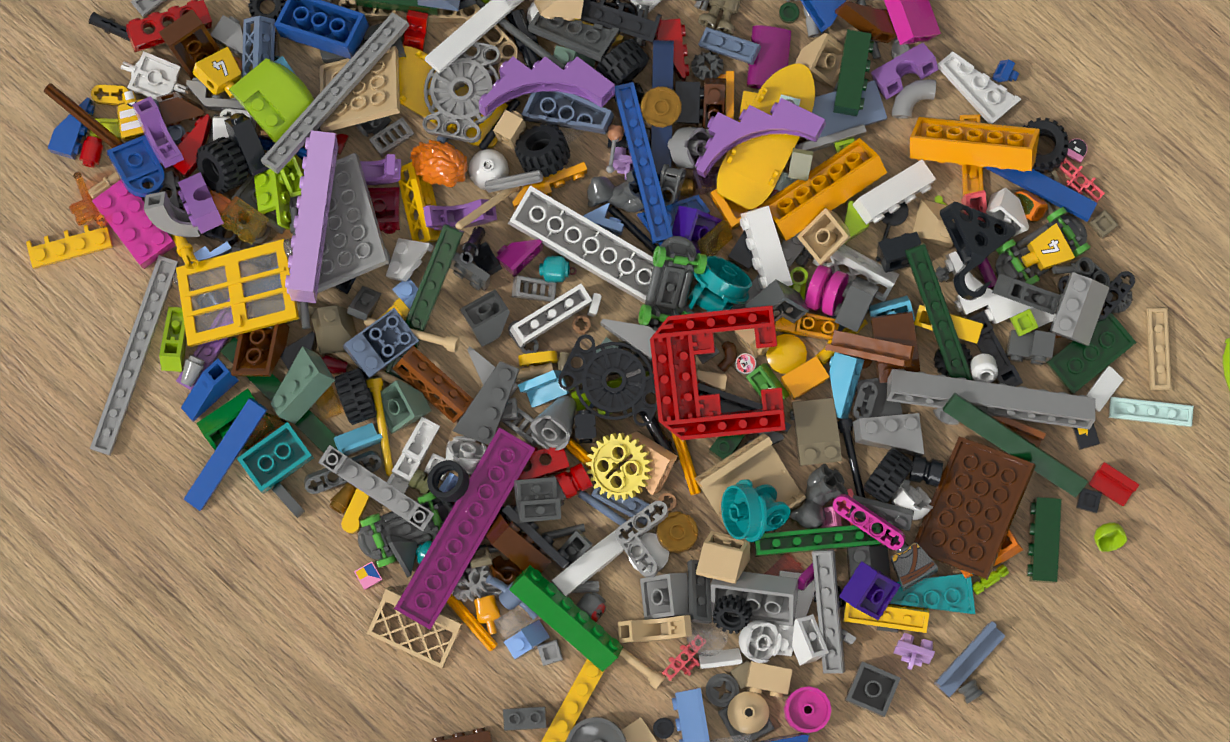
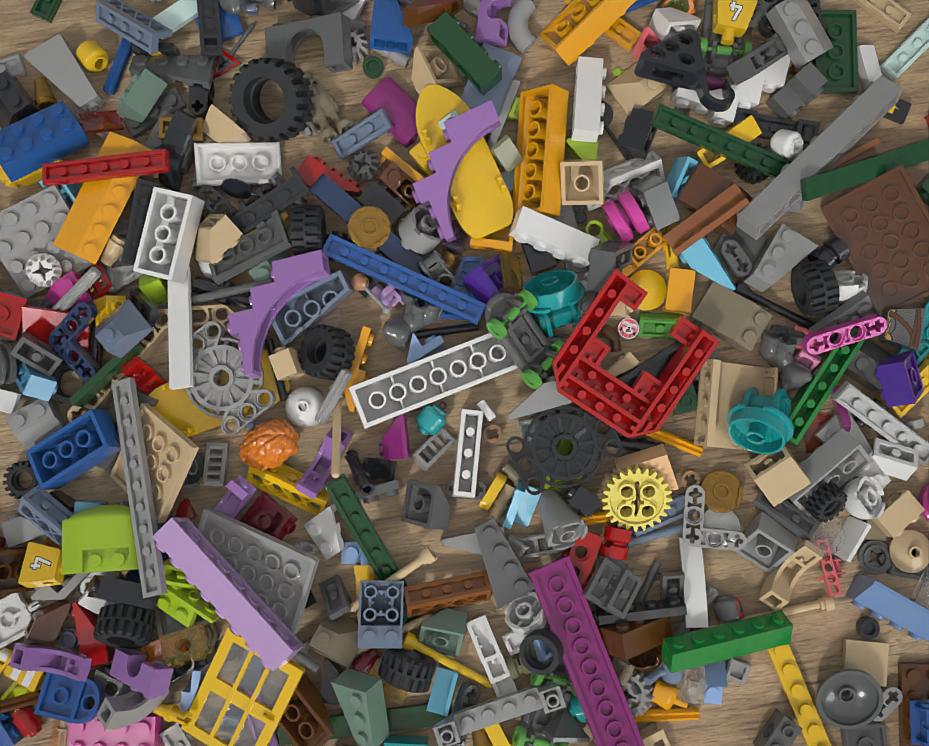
camera: 50 degrees left, 5 degrees up
(1024, 322) = (777, 81): lime plate -> none

